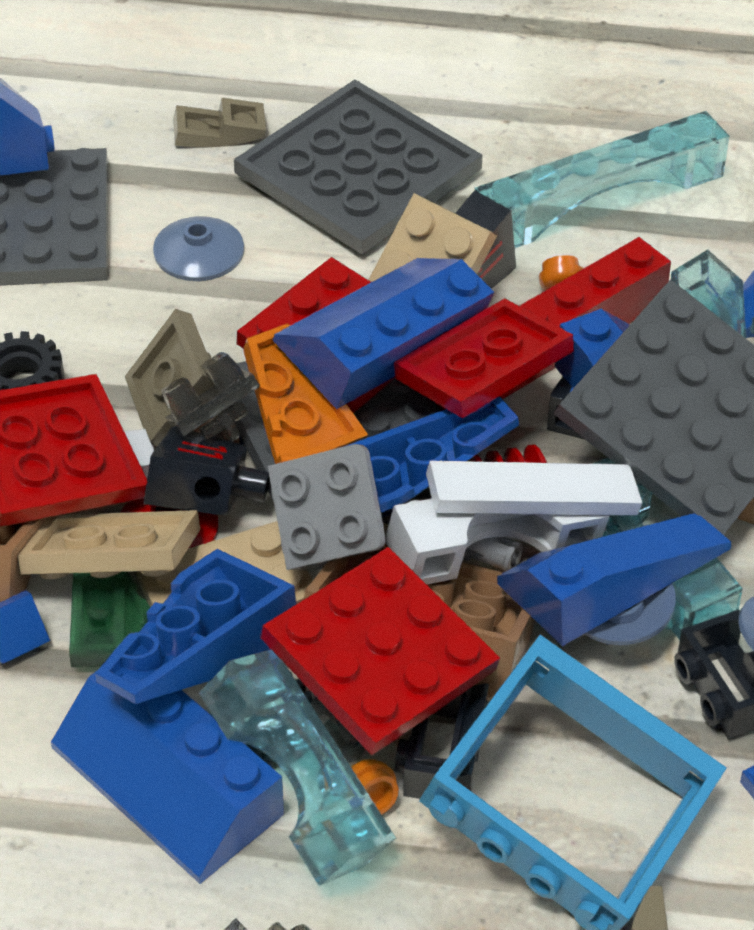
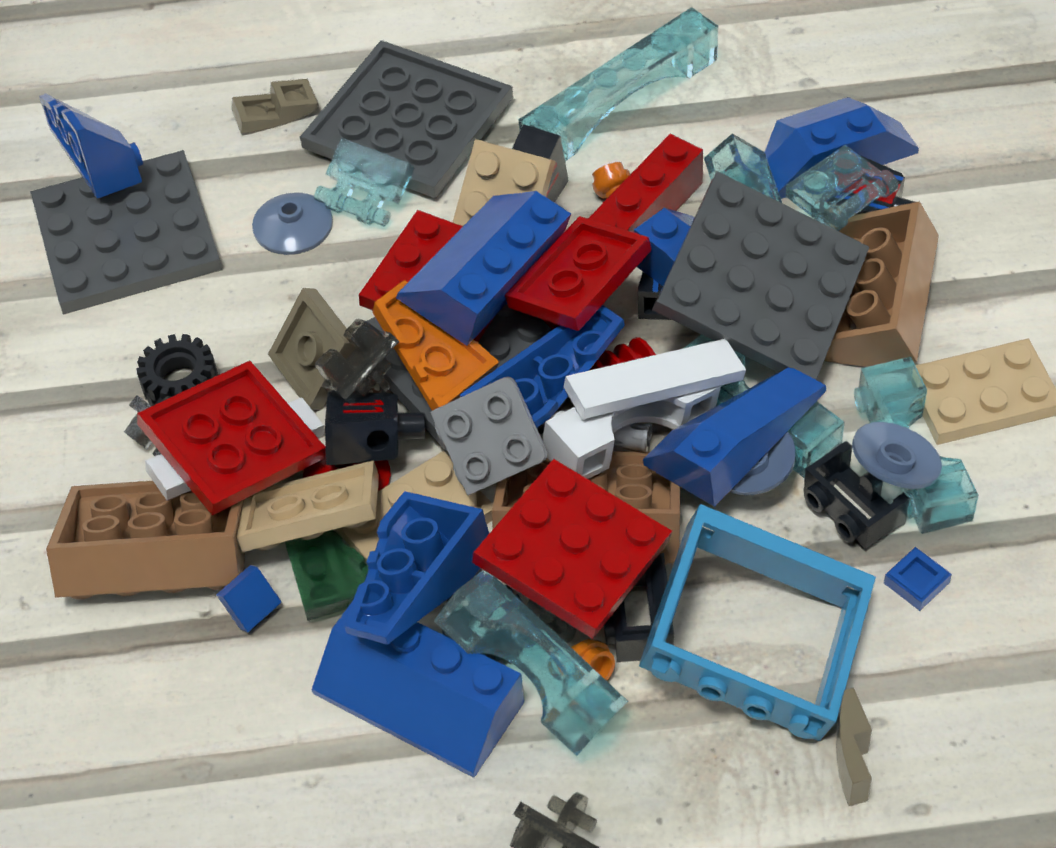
camera: 10 degrees left, 5 degrees up
(295, 209) = (369, 171): none -> clear light blue plate

